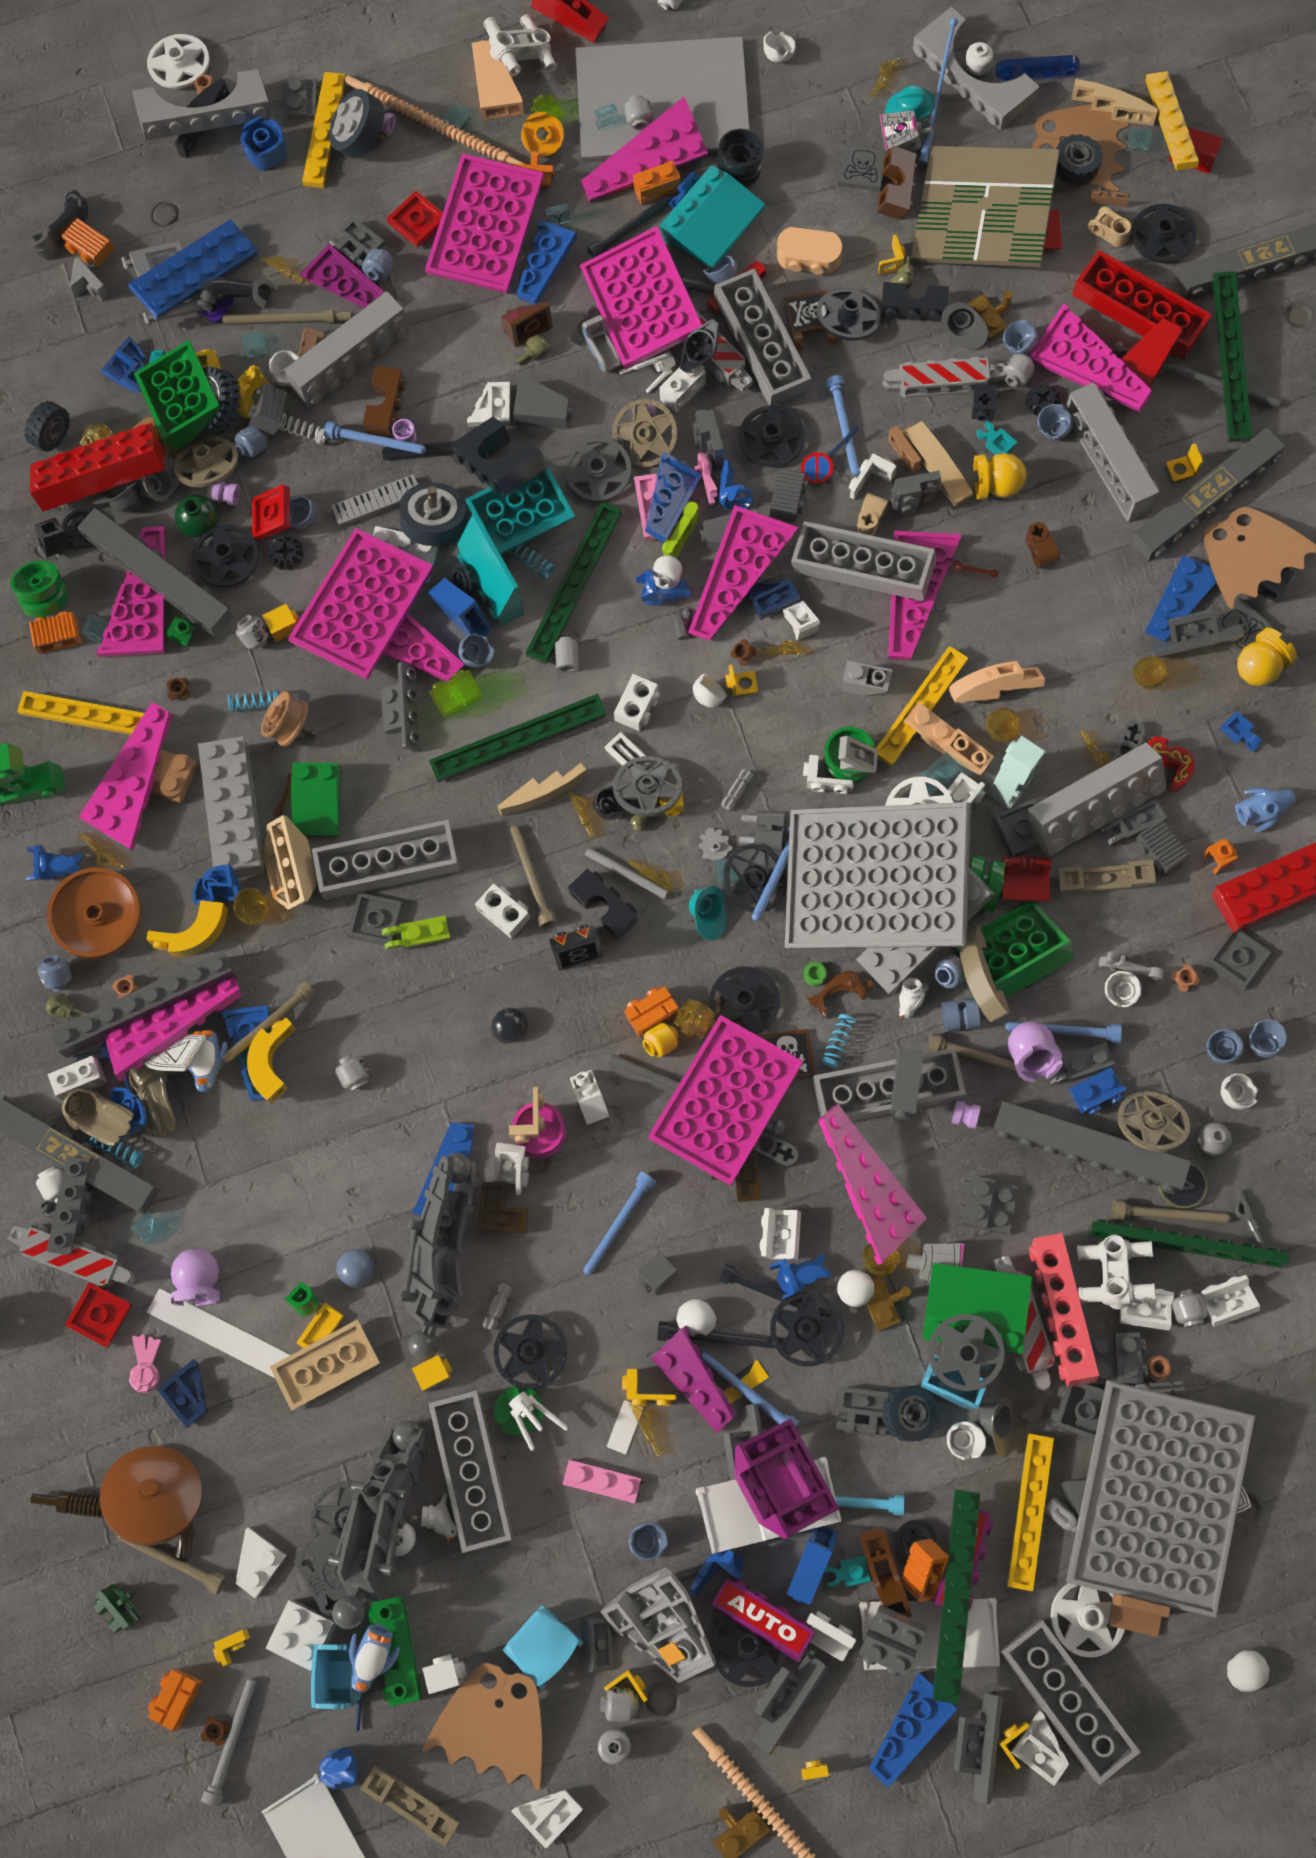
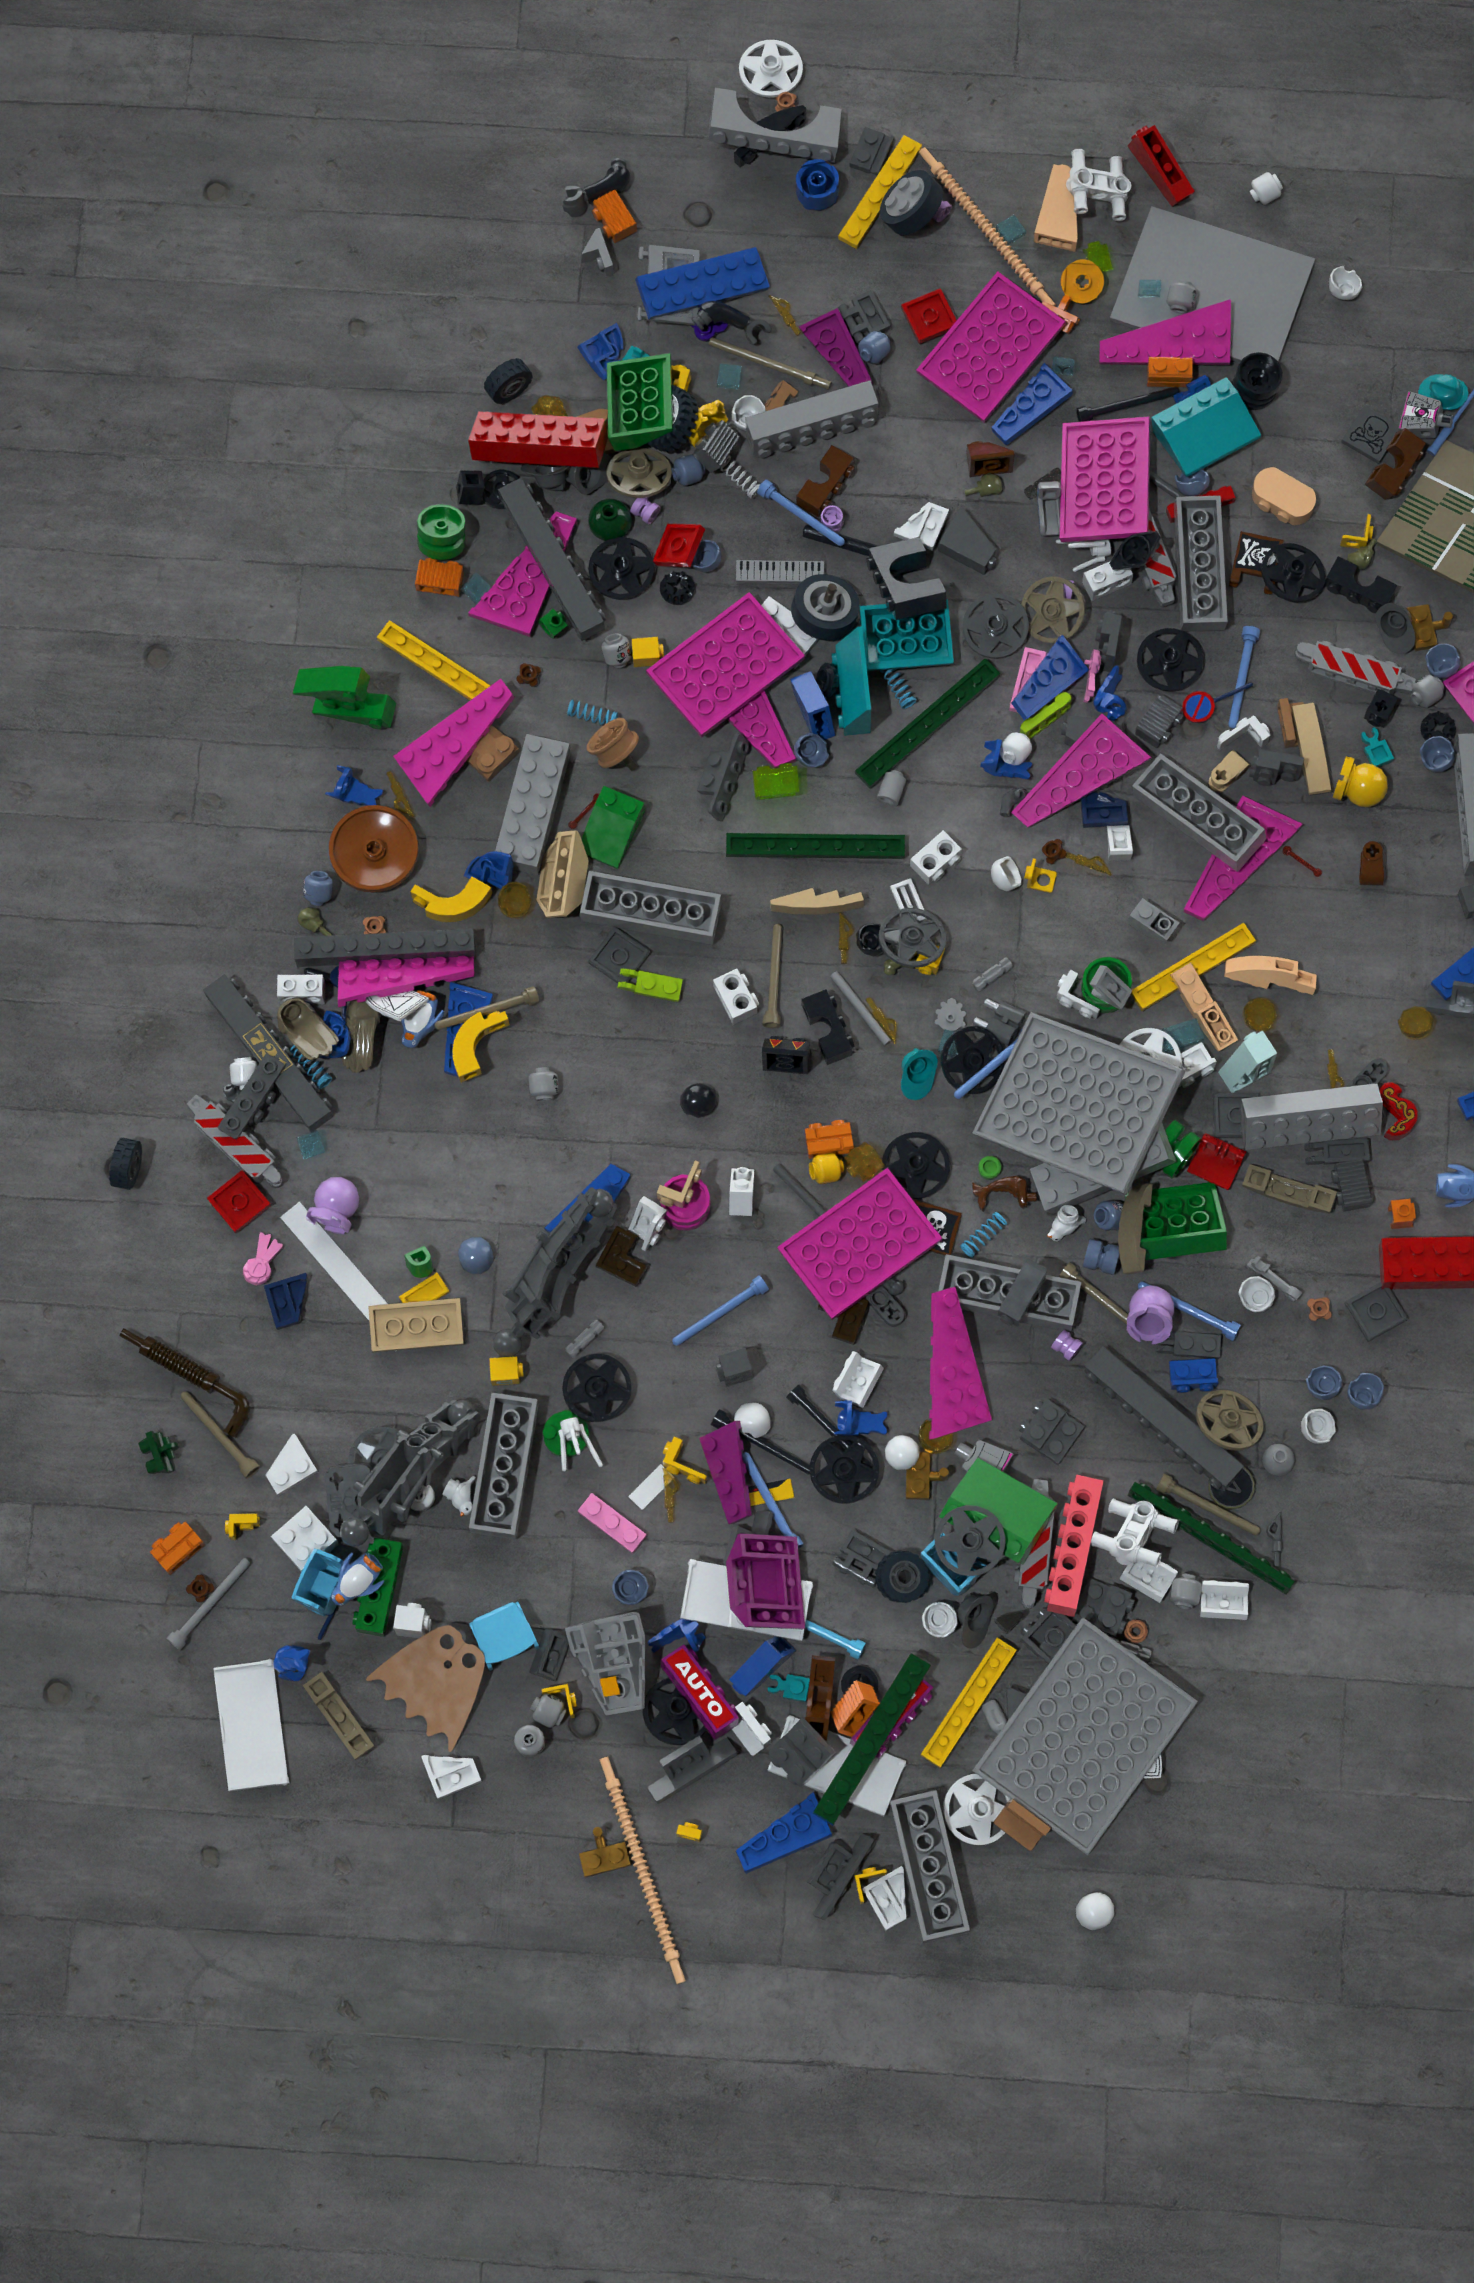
camera: 20 degrees right, 0 degrees up
(150, 1495) = (224, 1371): dark orange dish -> none
(885, 73) = (1435, 350): clear yellow hand -> none

